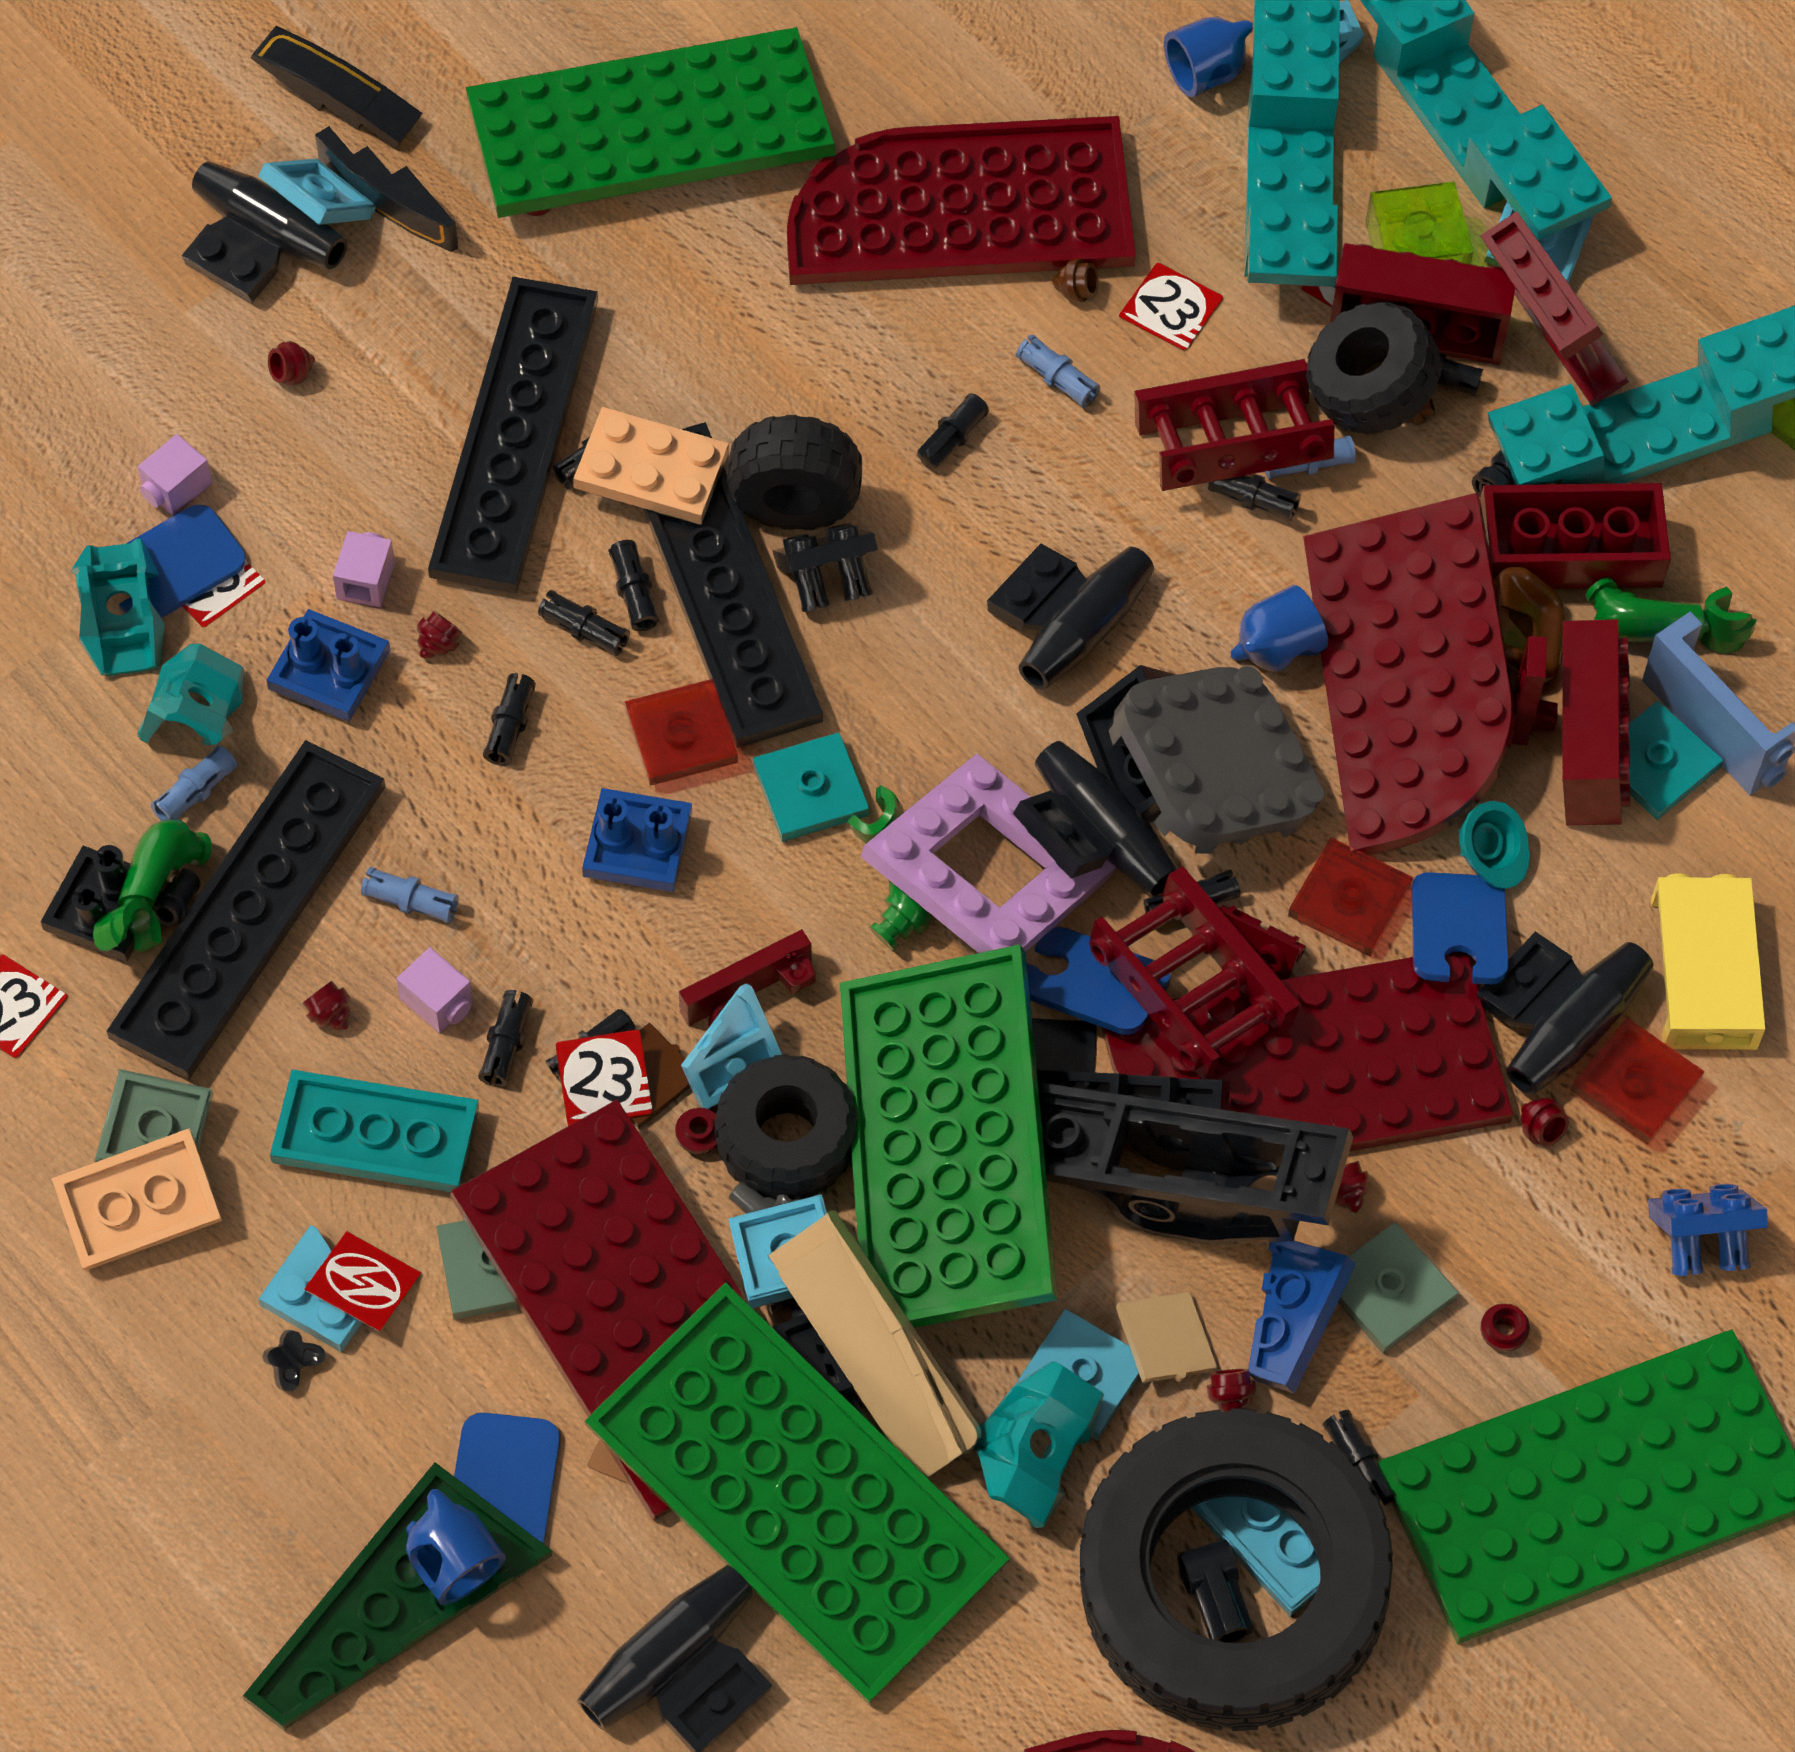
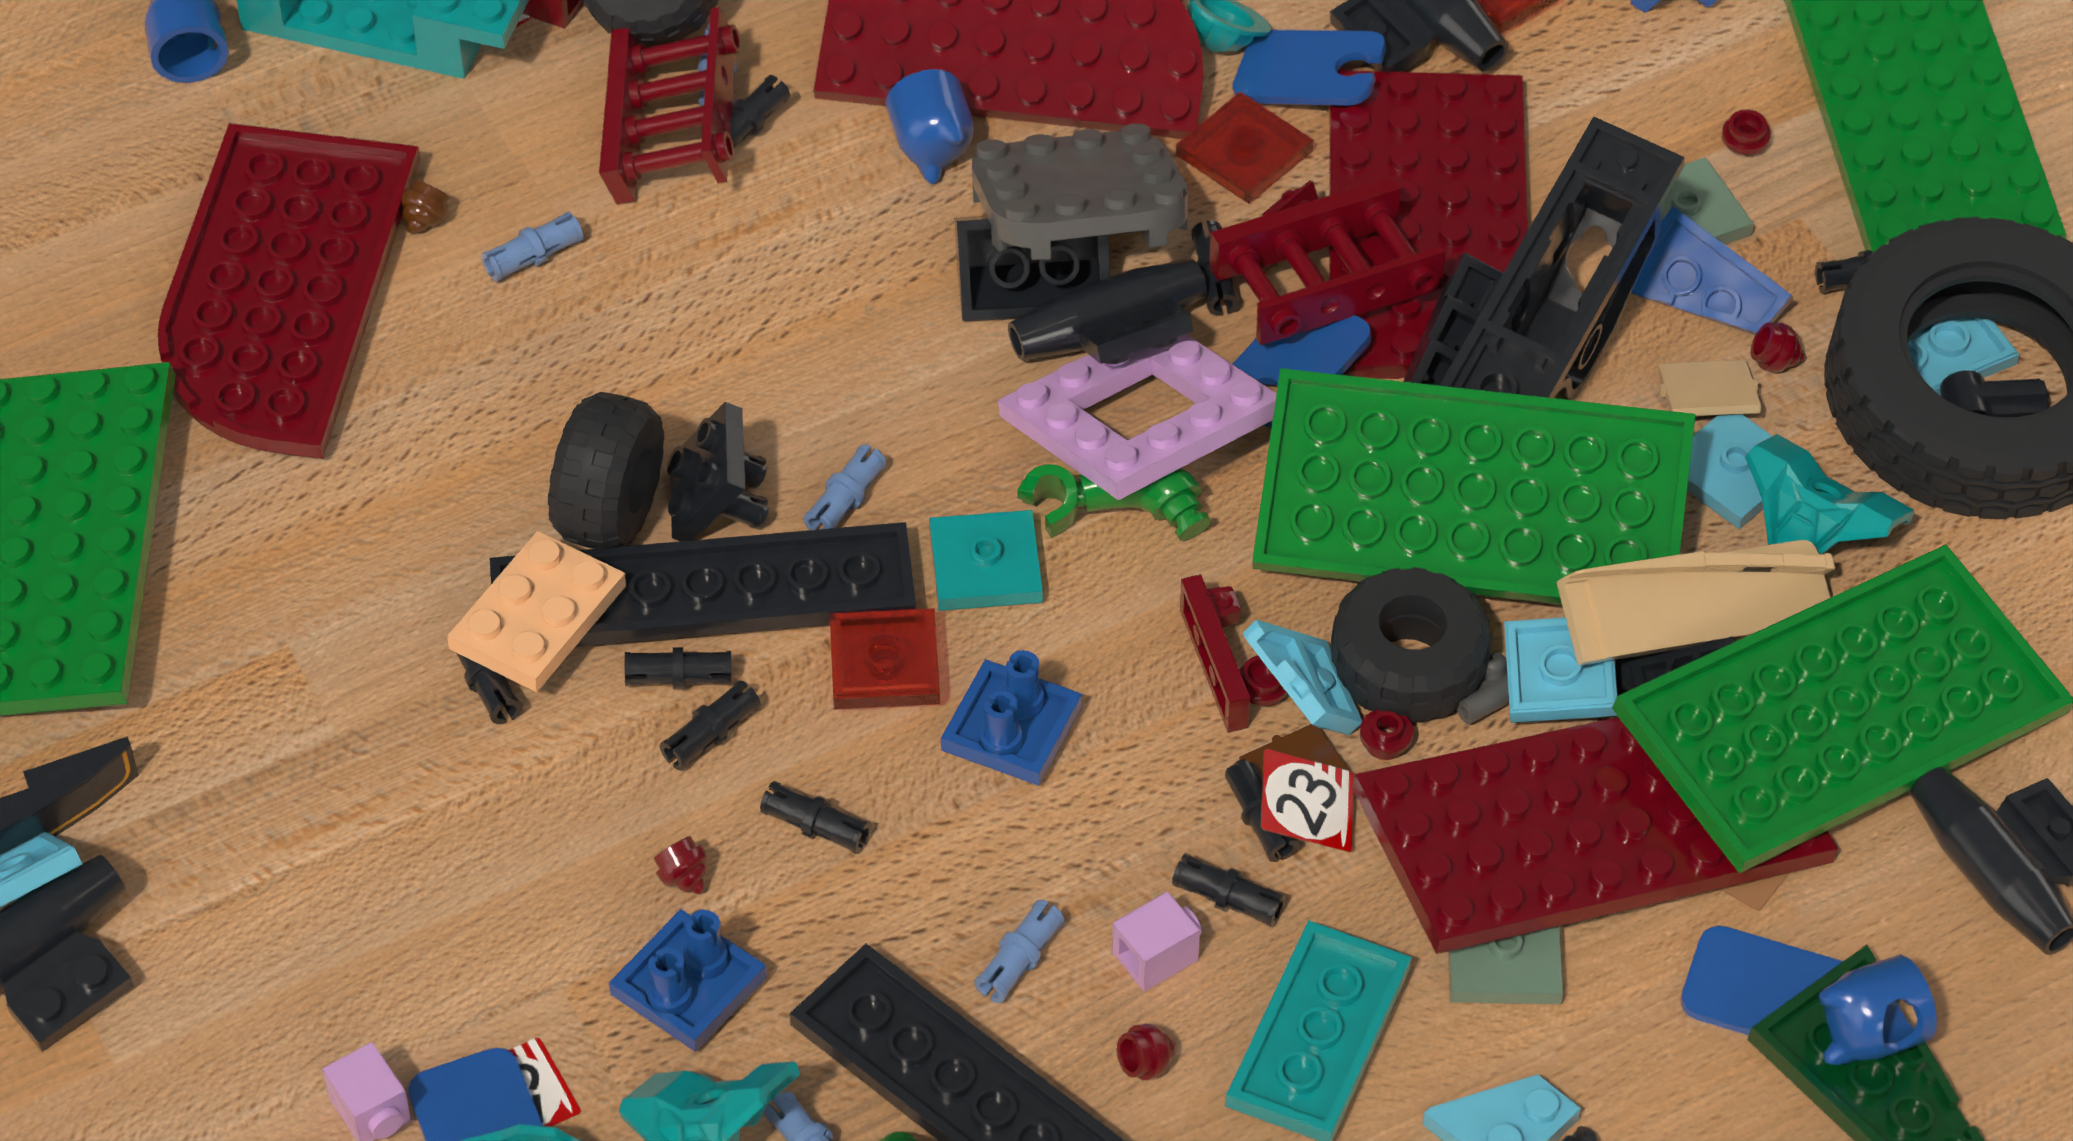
camera: 75 degrees left, 10 degrees down
(289, 363) = (246, 953): dark red plate -> none
(362, 1281) = (1506, 1072): red sticker -> none
(364, 569) = (569, 919): lavender brick -> none
(513, 435) = (432, 745): black plate -> none
(854, 664) = (845, 489): none -> medium blue pin
(953, 431) = (576, 348): black axle -> none
(1066, 608) = (842, 286): black plate -> none
(1170, 306) = (479, 144): sticker -> none
(1544, 1121) = (1532, 56): dark red plate -> none

